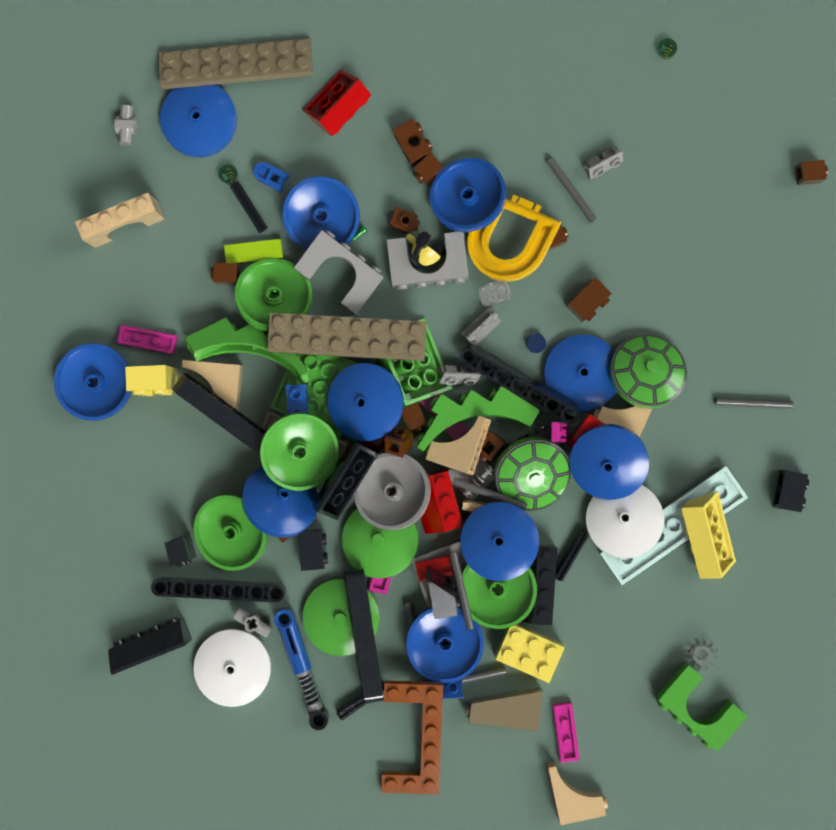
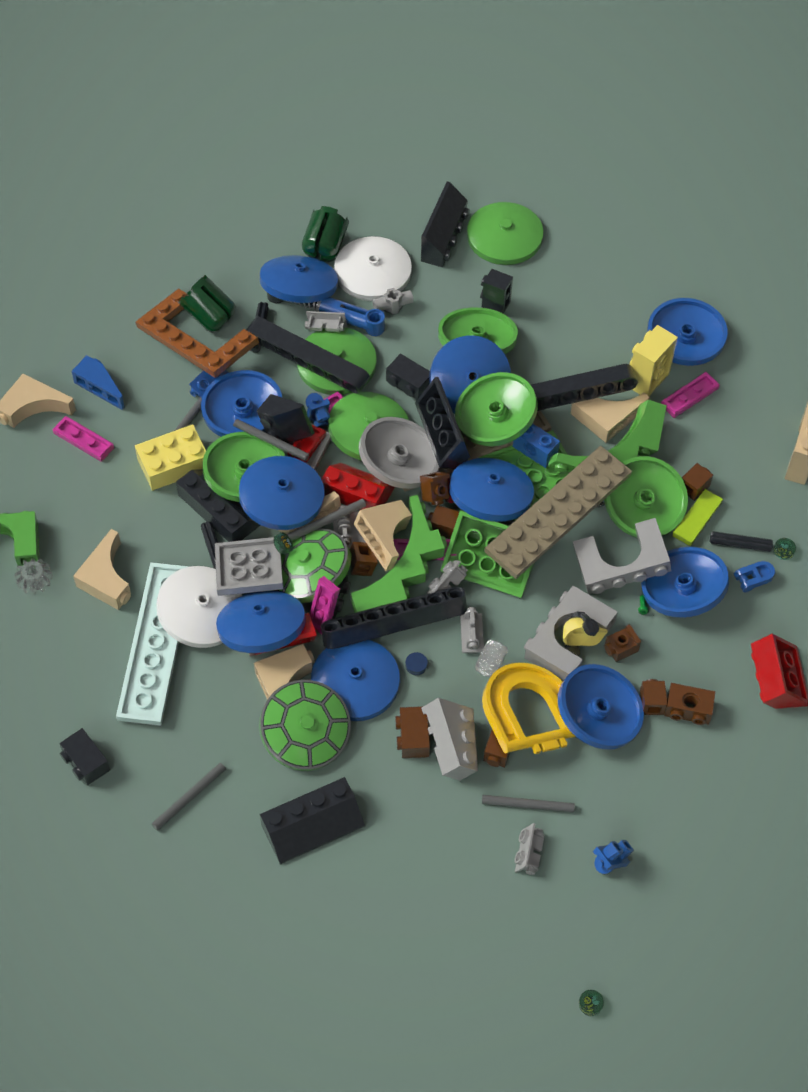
camera: 130 degrees right, 30 degrees down
(109, 598) = (505, 233): none -> bright green dish
(210, 593) = (440, 299): black beam -> none
(239, 728) = (324, 234): none -> dark green cylinder
(298, 708) = (298, 279): none -> blue dish
(320, 659) = (329, 320): none -> light grey hinge
(372, 752) = (208, 304): none -> dark green cylinder
(402, 585) = (317, 409): none -> blue hips
(508, 710) = (144, 410): dark tan slope -> none
(512, 770) = (94, 378): none -> blue slope
(536, 503) = (283, 543): none -> clear green tile
(566, 105) = (612, 856): none -> blue hips
(571, 512) = (247, 566): none -> light grey plate
(574, 267) = (454, 737): none -> light grey wedge
(660, 610) = (99, 577): none -> tan arch
(704, 310) = (312, 820): none -> black slope
(708, 536) = (119, 655): light yellow slope -> none
(811, 172) = (347, 1029): reddish brown brick -> none

